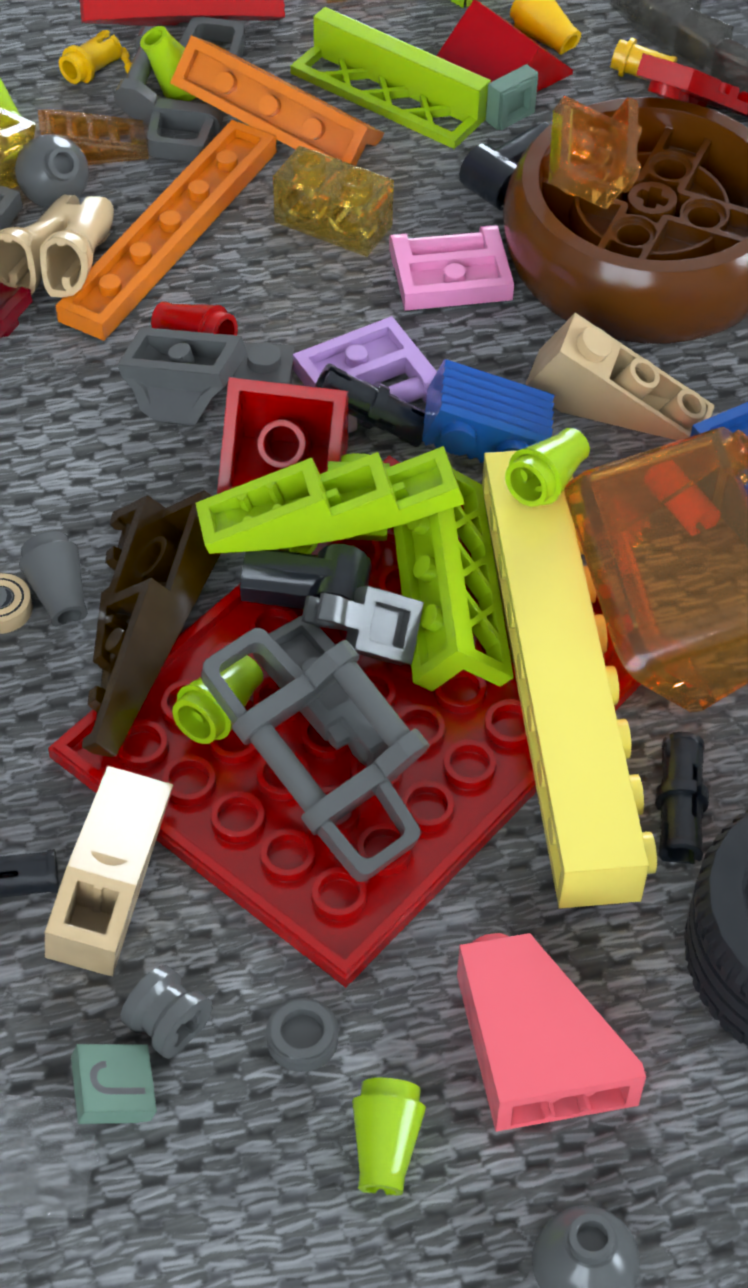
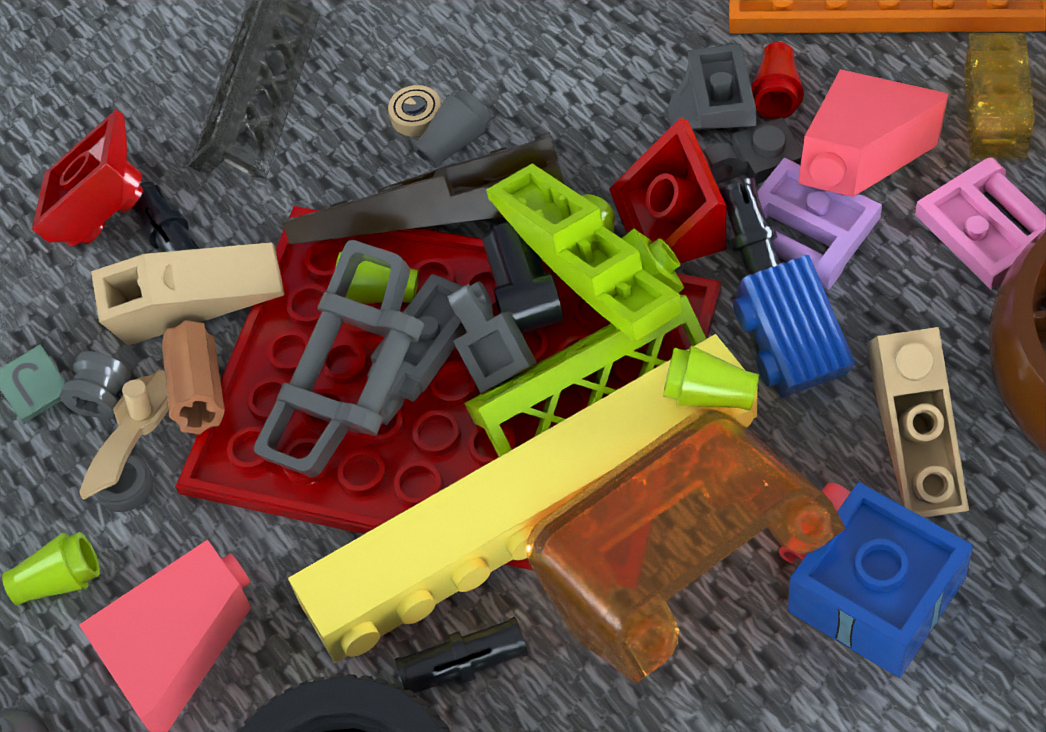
camera: 75 degrees right, 5 degrees up
(227, 903) = (192, 377): none -> nougat axle
(232, 982) = (137, 414): none -> tan piece
(309, 290) = (868, 132): none -> coral slope

